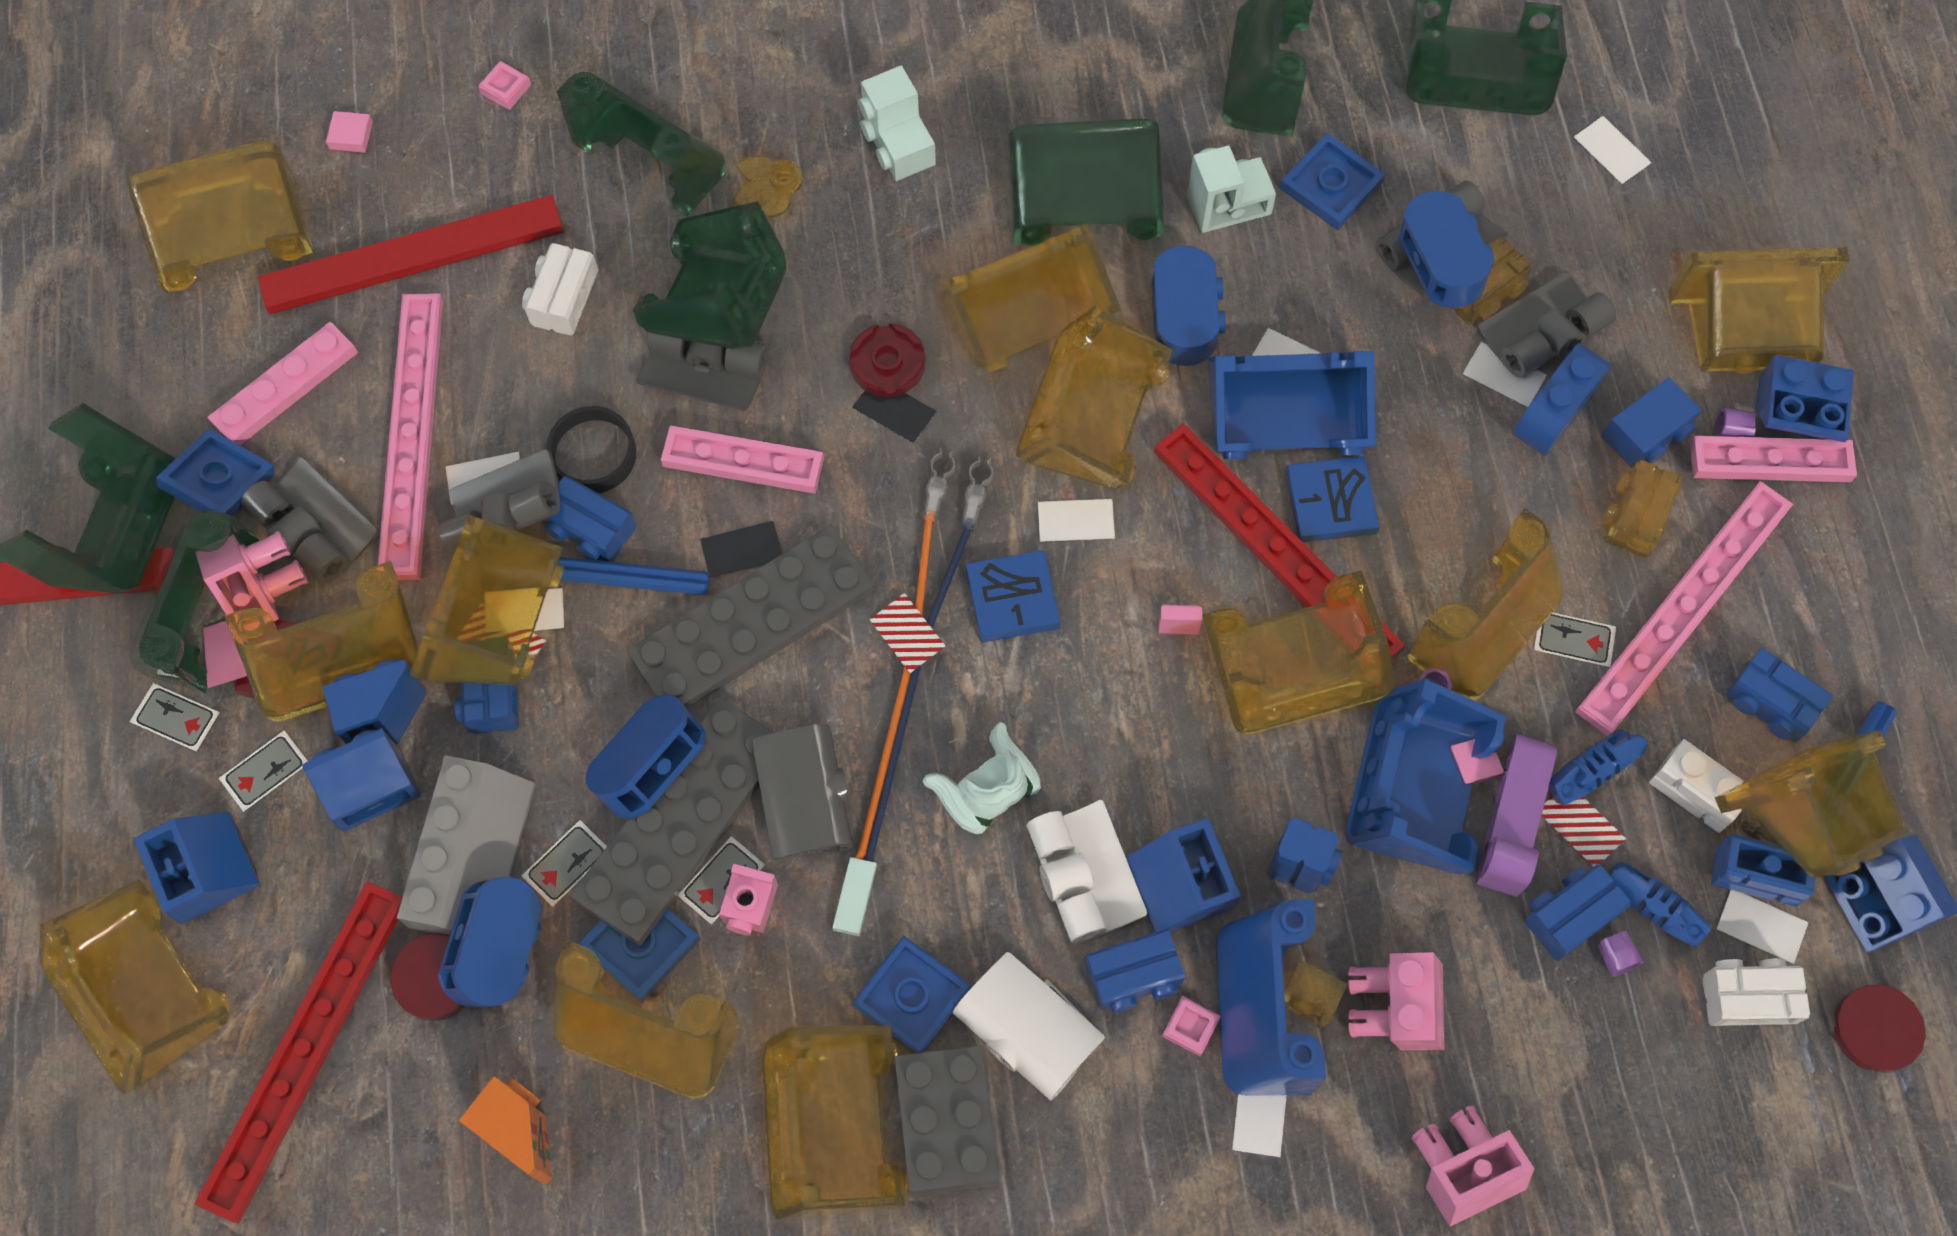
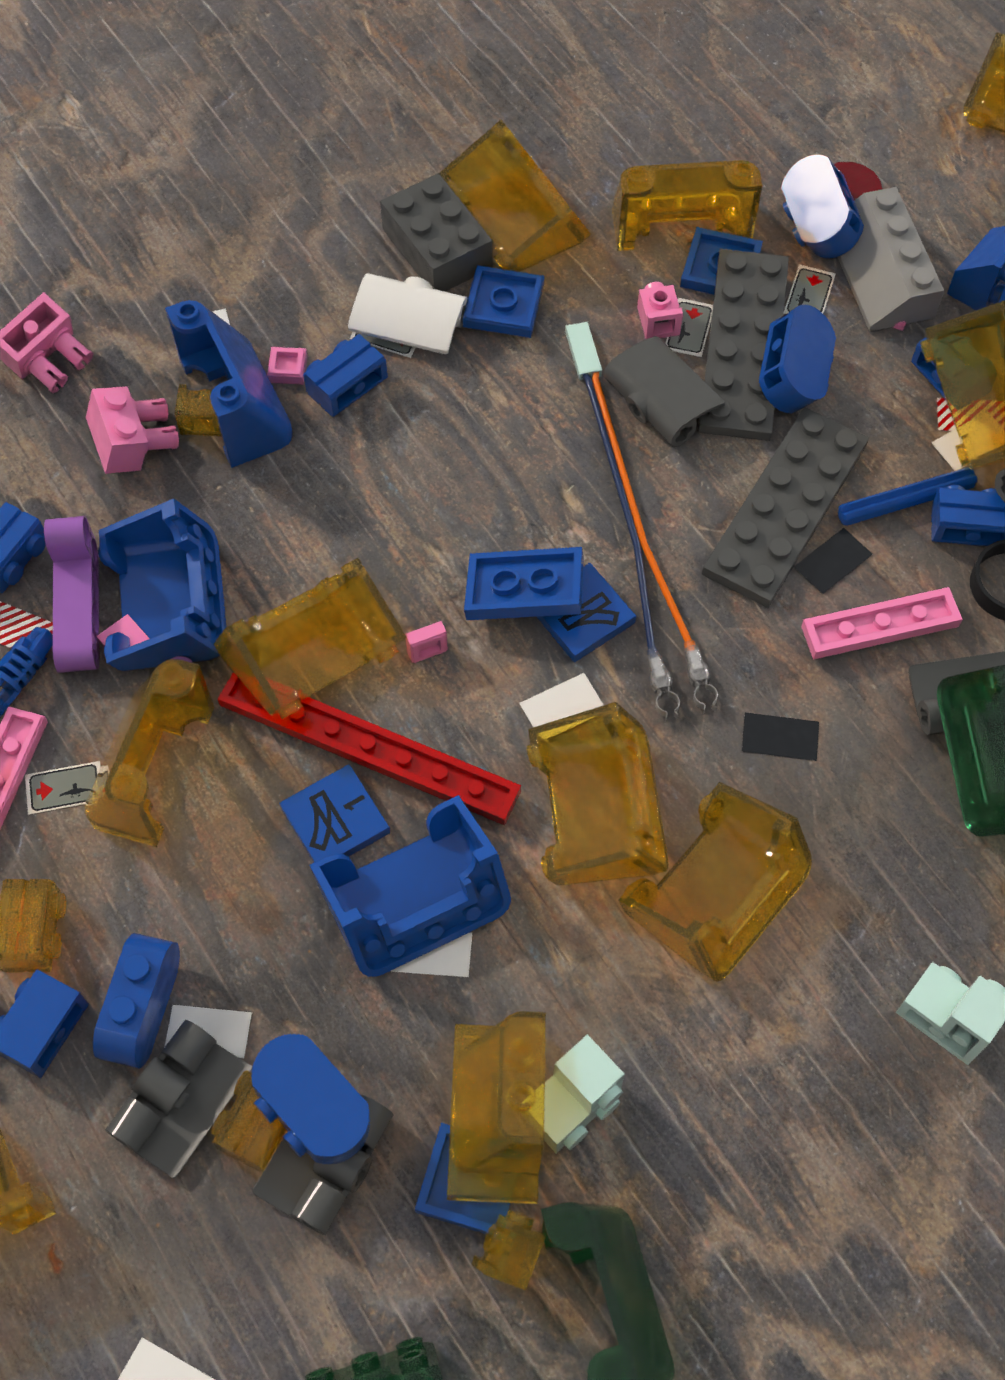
camera: 155 degrees right, 5 degrees down
(300, 1054) = (901, 119): red plate -> none
(512, 1125) = (724, 112): orange slope -> none
(887, 360) = (814, 776): dark red tile -> none
(907, 633) = (653, 543): sticker -> none
(990, 787) = (517, 452): light aqua hair -> none
(1060, 631) = (524, 583): none -> blue plate
(1085, 176) = (723, 1031): clear green windscreen -> none
(1086, 871) = (417, 428): white panel -> none
(1184, 877) = (331, 446): blue slope -> none
(1187, 304) = (559, 947): blue brick -> none
(1291, 202) = (498, 1110): none -> clear yellow windscreen
(1305, 856) = (241, 485): blue brick -> none
(1327, 110) = (511, 1249): none -> clear yellow brick

